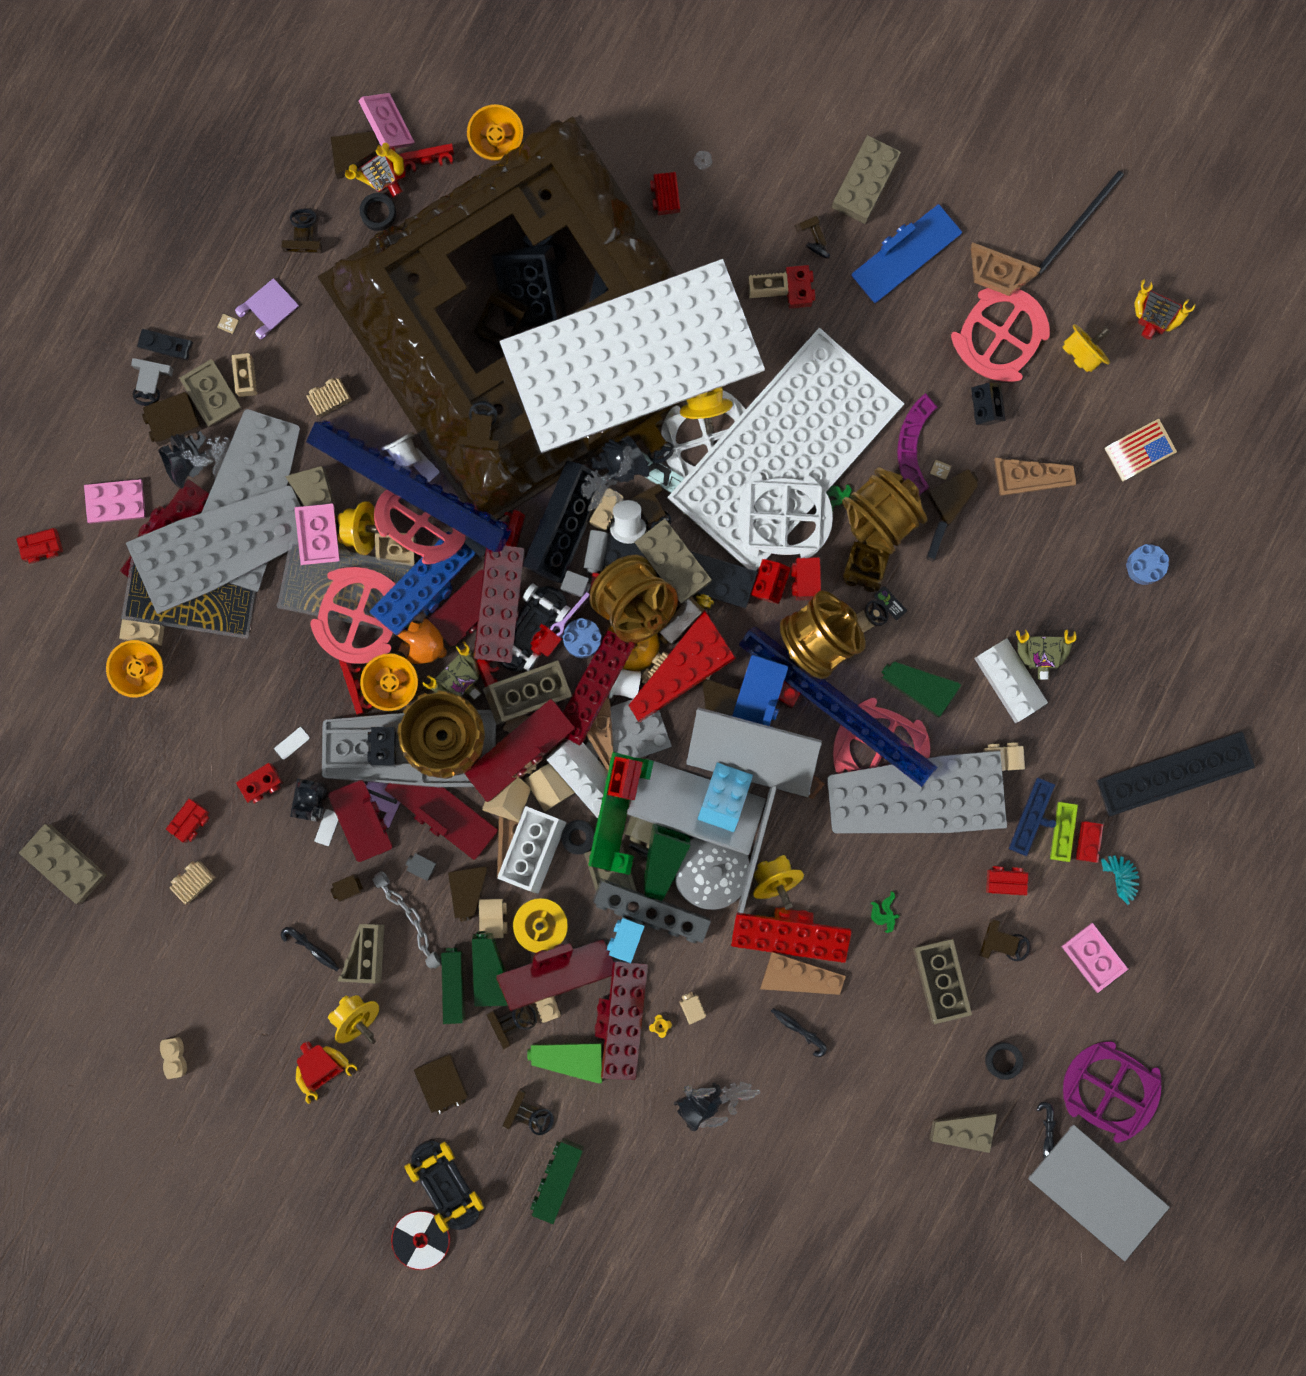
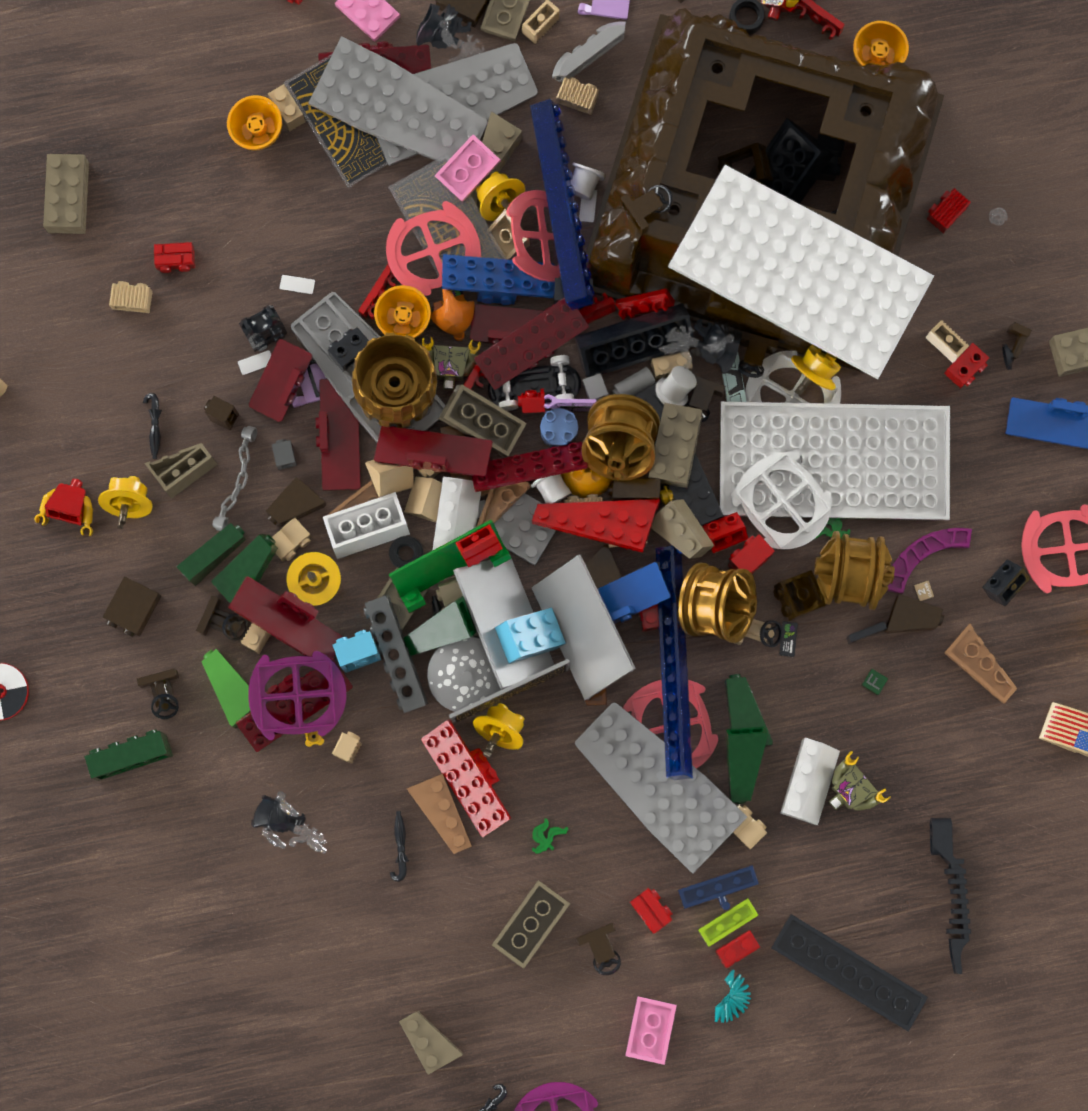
camera: 50 degrees right, 5 degrees down
(258, 780) = (246, 284): red brick -> none
(301, 333) = (582, 56): none -> light grey brick
(445, 1186) = (55, 676): black piece -> none
(541, 489) = (644, 303): none -> red plate
(598, 1044) = (258, 697): none -> magenta window
(742, 612) = (682, 529): none -> dark tan wedge
(955, 716) = (744, 758): none -> dark green slope
(977, 566) = (874, 682): none -> dark green tile
(1004, 1075) = (495, 1030): black tyre -> none
(1141, 623) = (942, 844): none -> black piece
(1147, 564) = (992, 810): medium blue brick -> none

